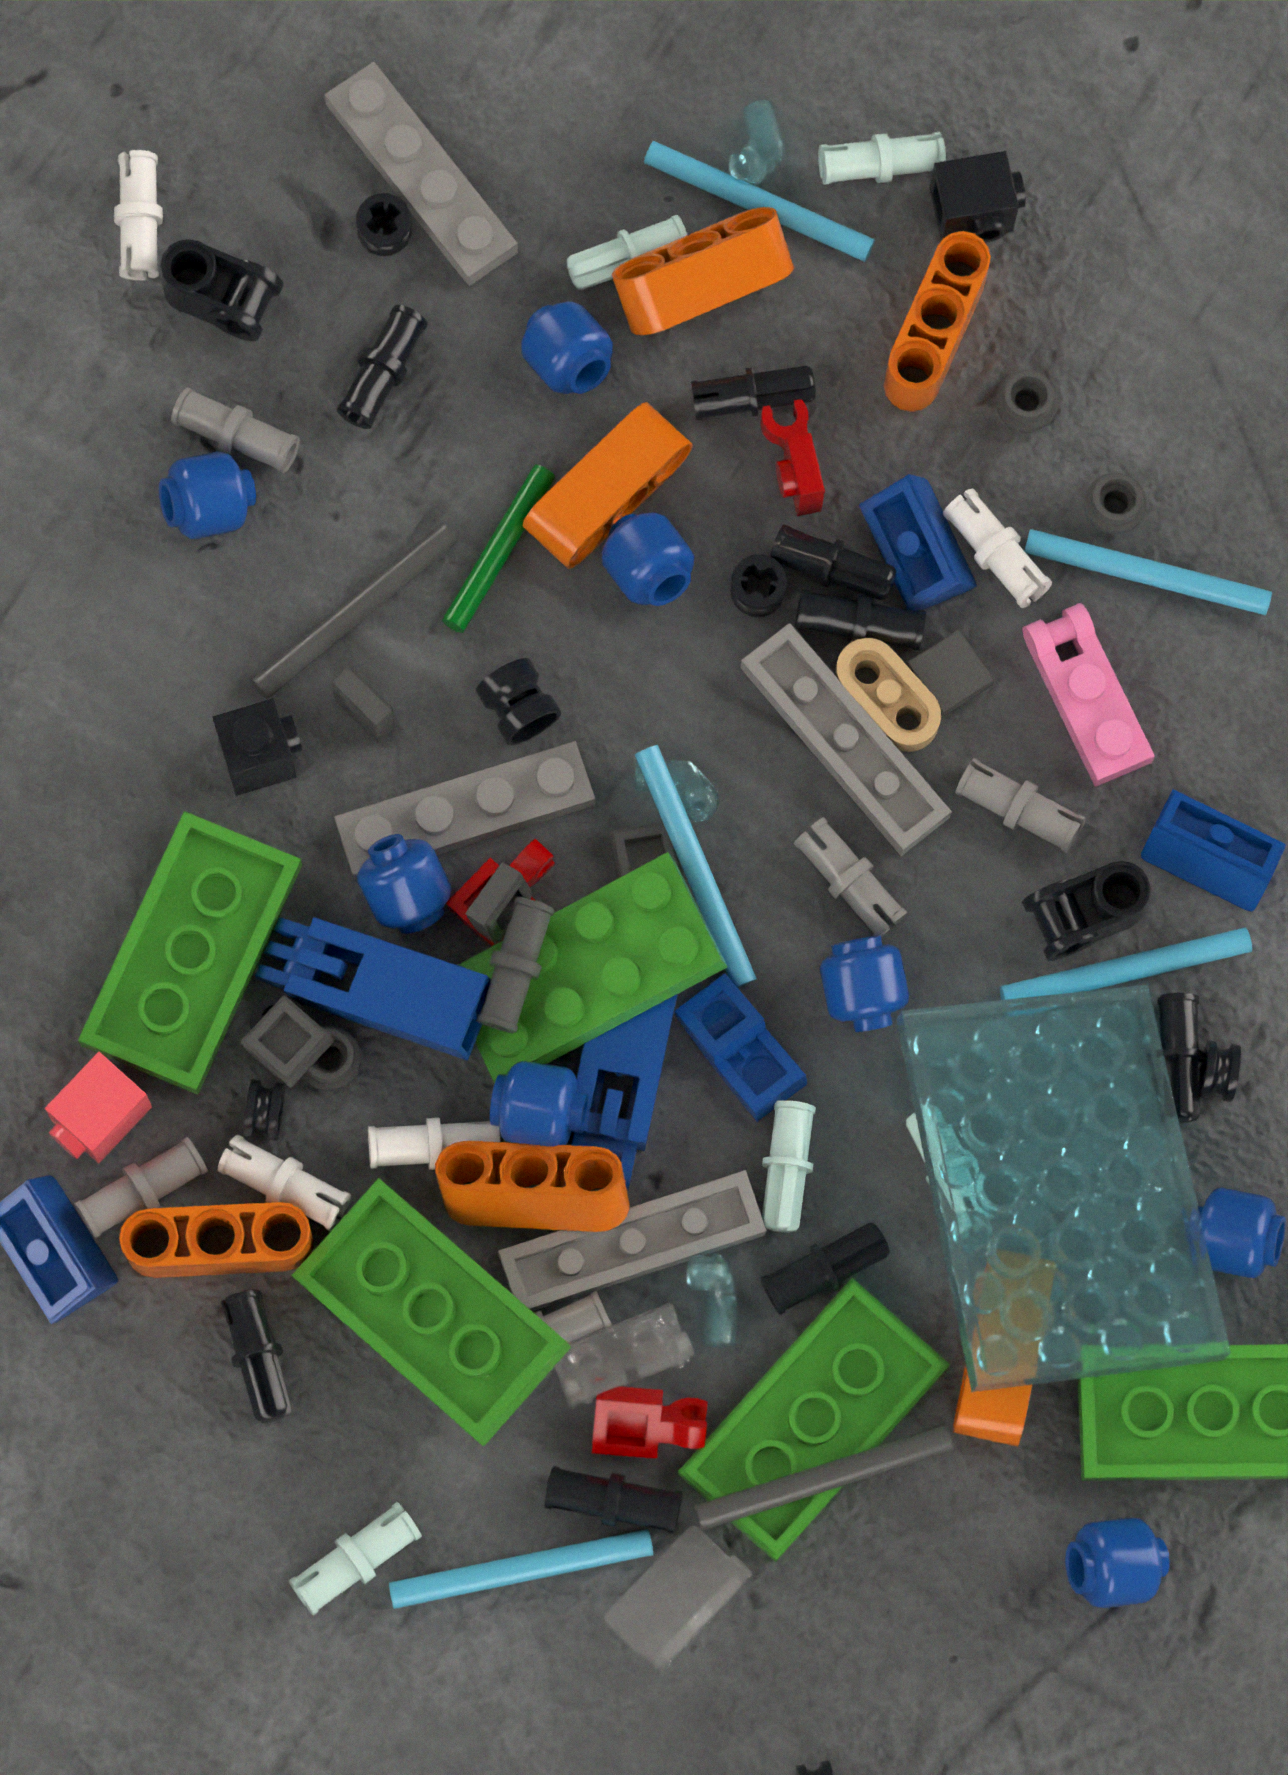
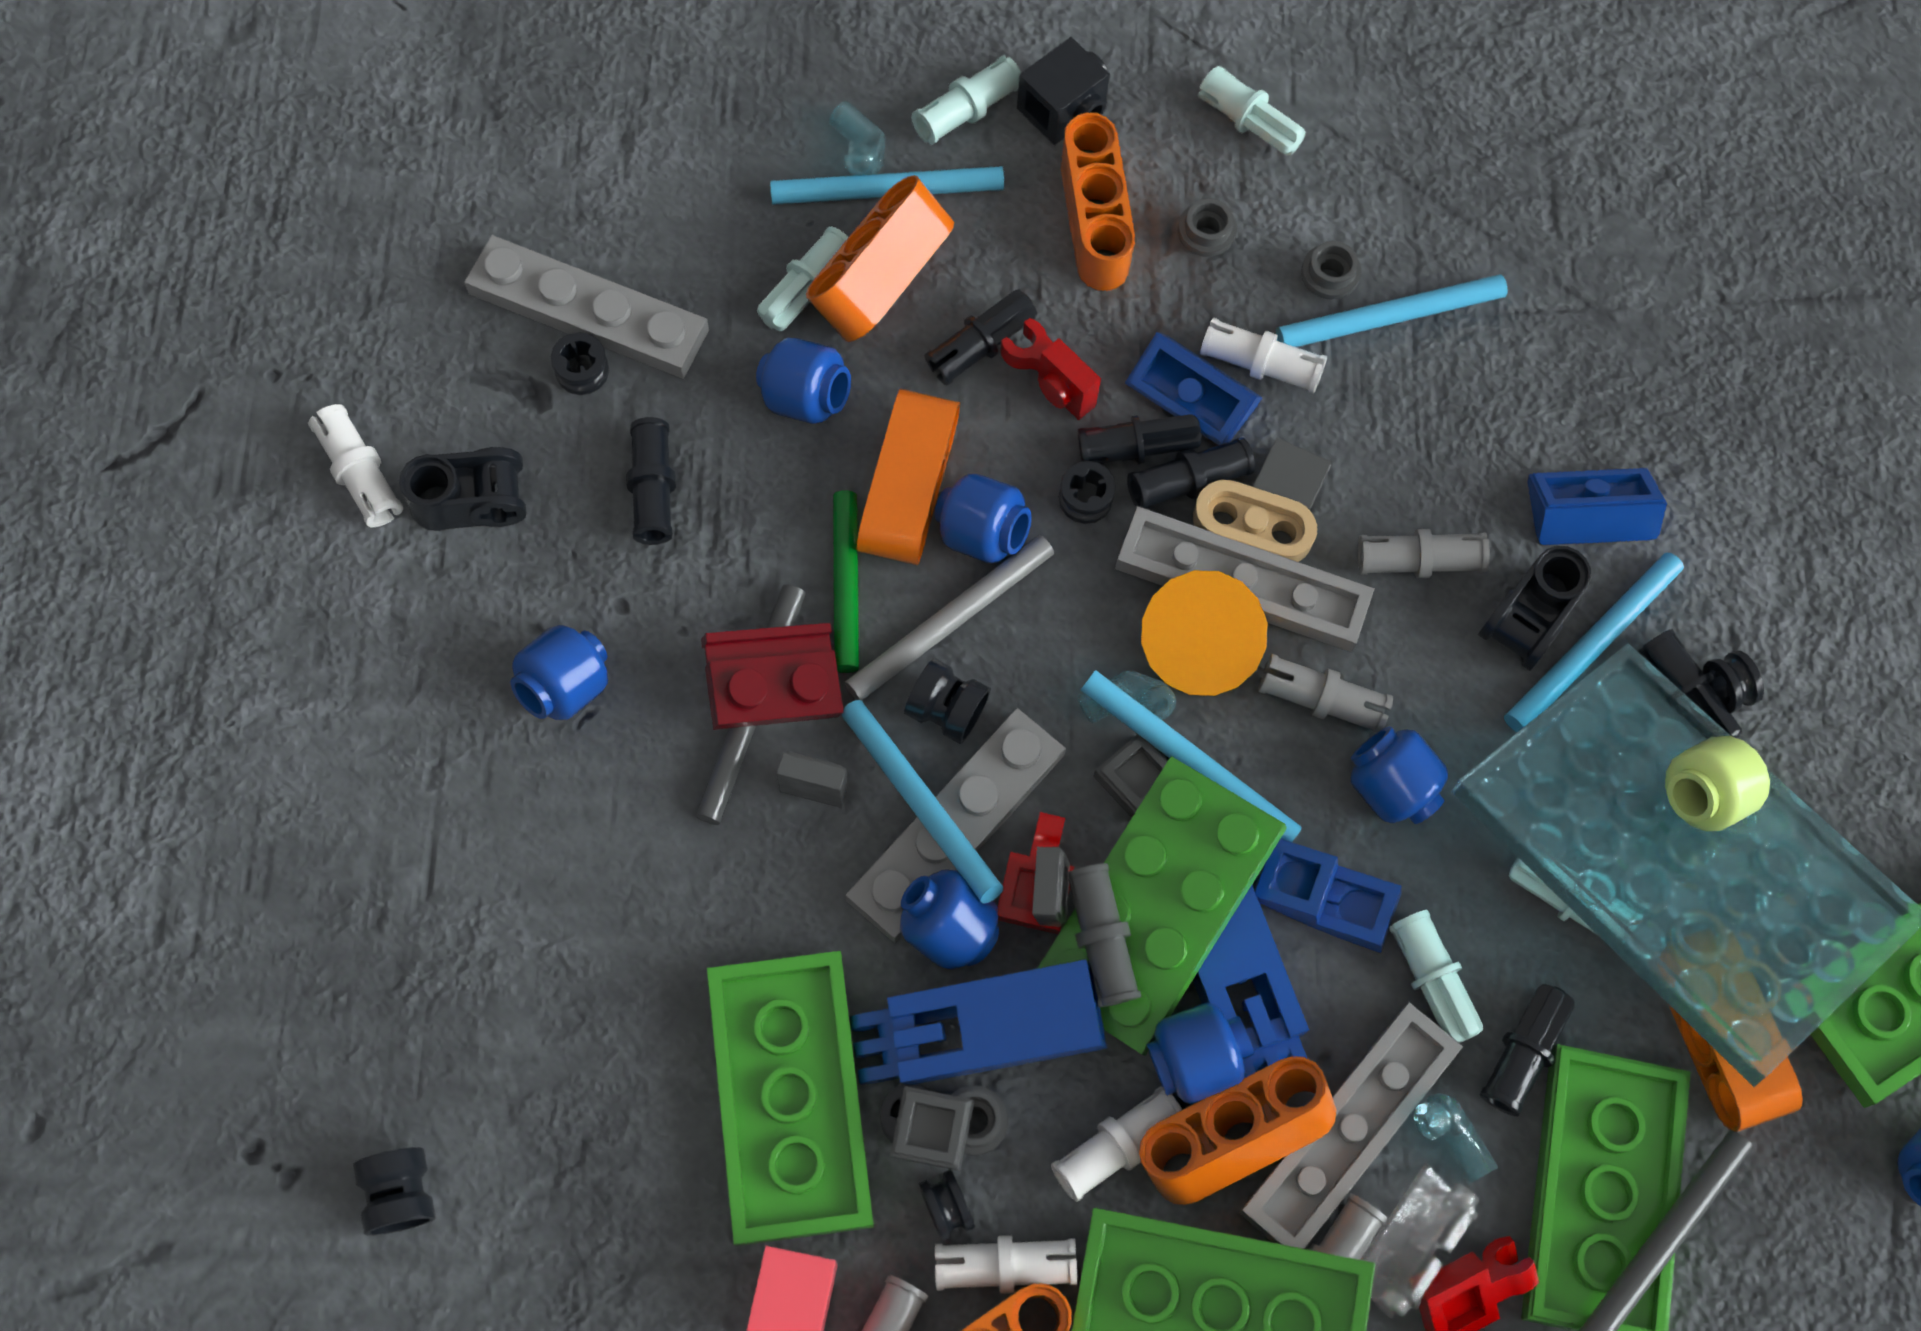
camera: 30 degrees left, 5 degrees down
(235, 430) = (551, 603): light grey pin -> none
(257, 746) = (739, 870): black brick -> none
(382, 596) = (771, 676): none -> dark red plate
(441, 772) = (922, 802): none -> medium azure bar
(569, 630) = (949, 618): none -> light grey bar
(775, 766) = (1204, 633): none -> light orange tile
(1088, 696) = (1412, 434): bright pink plate -> none
(1115, 1136) = (1717, 783): none -> yellowish green head
(1141, 310) = (1250, 110): none -> light aqua axle
(1241, 1232) = (1853, 804): blue head -> none

